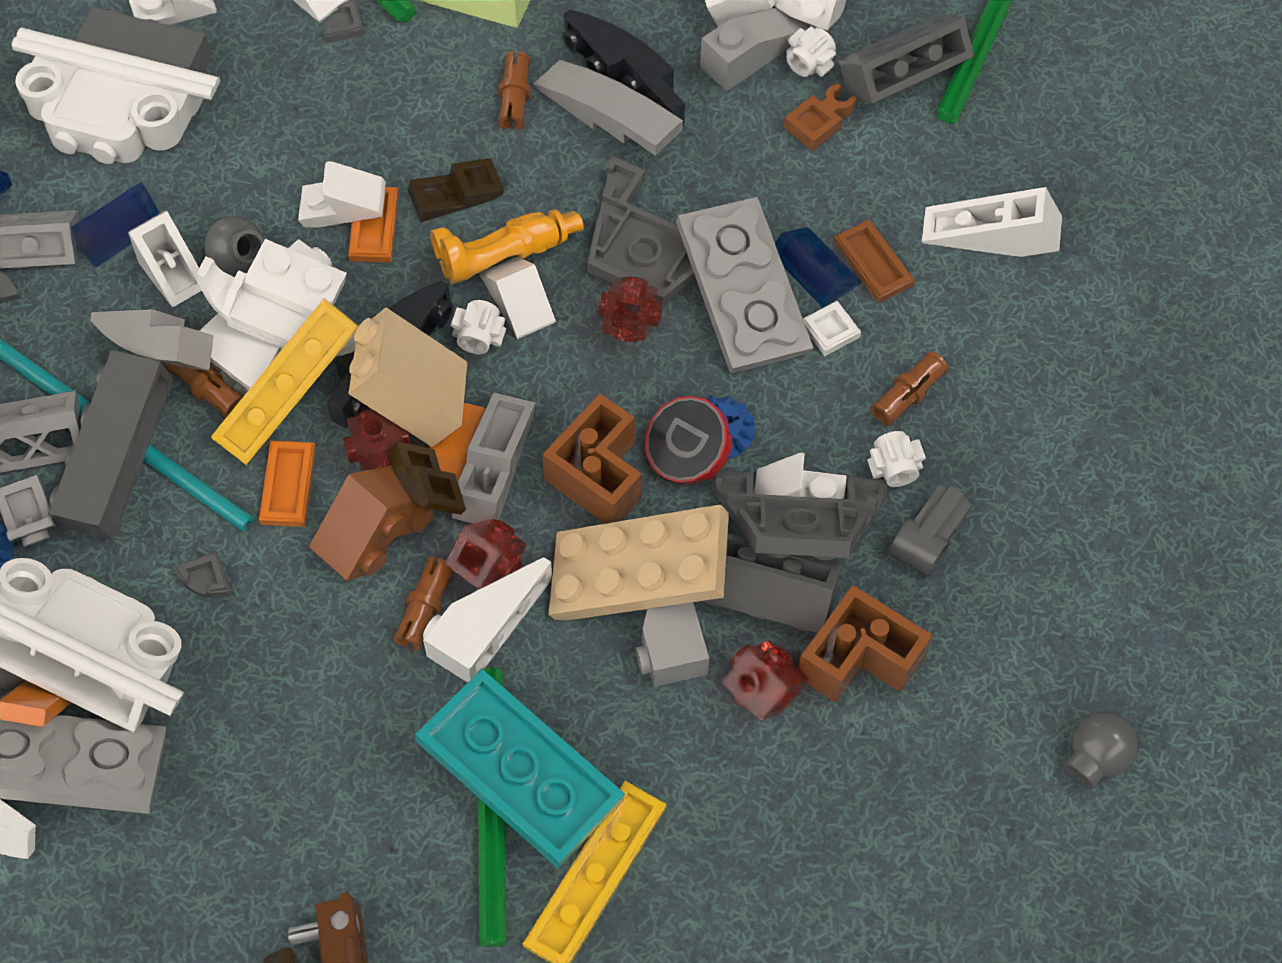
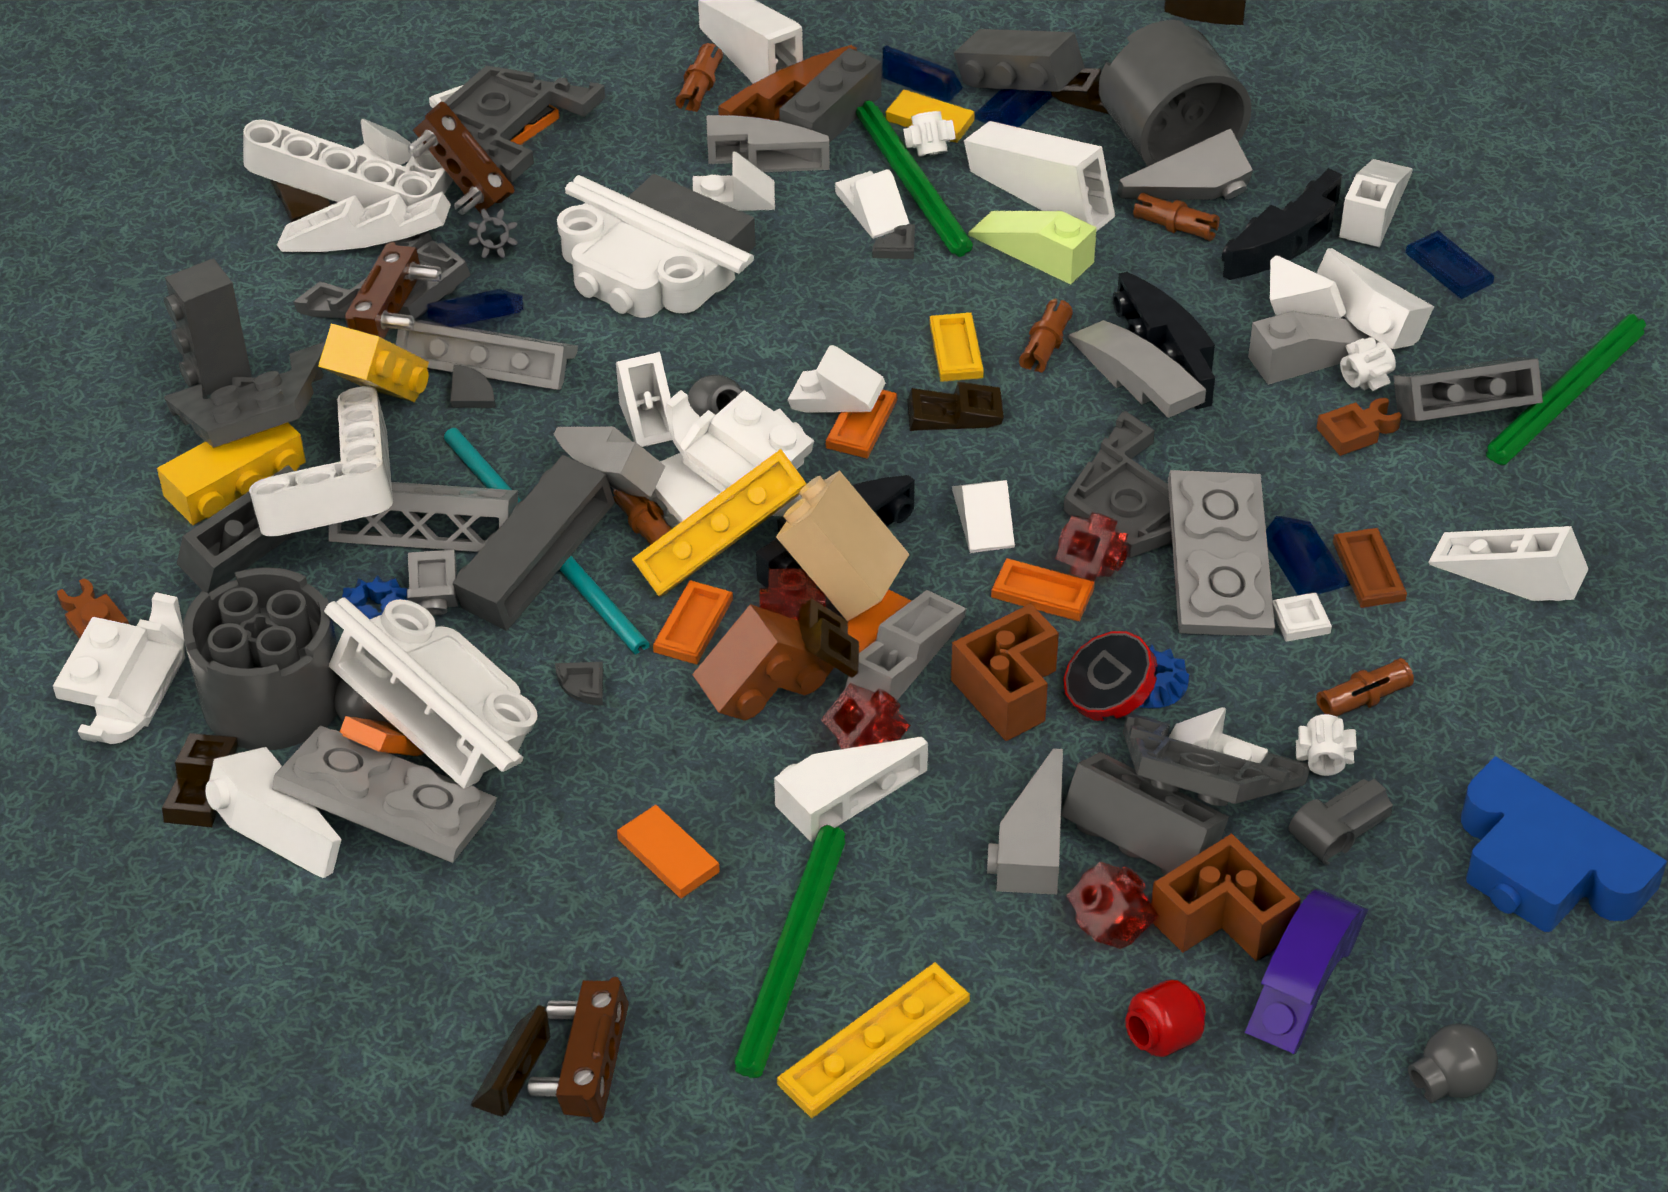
camera: 20 degrees right, 15 degrees down
(107, 229) = (593, 366): clear blue slope -> none
(345, 735) = (668, 851): none -> orange tile
(423, 603) = (788, 751): dark orange pin -> none
(435, 122) = (956, 347): none -> yellow tile
(478, 327) = (932, 527): white gear -> none
(519, 237) = (1005, 460): light orange piece -> none
(520, 768) = (830, 915): teal plate -> none
(595, 361) = (1043, 588): none -> orange tile
(640, 564) = (1017, 764): tan plate -> none
(846, 779) = (1165, 1018): none -> red head
(952, 693) = (1301, 965): none -> dark purple arch
(1115, 513) = (1548, 853): none -> blue brick

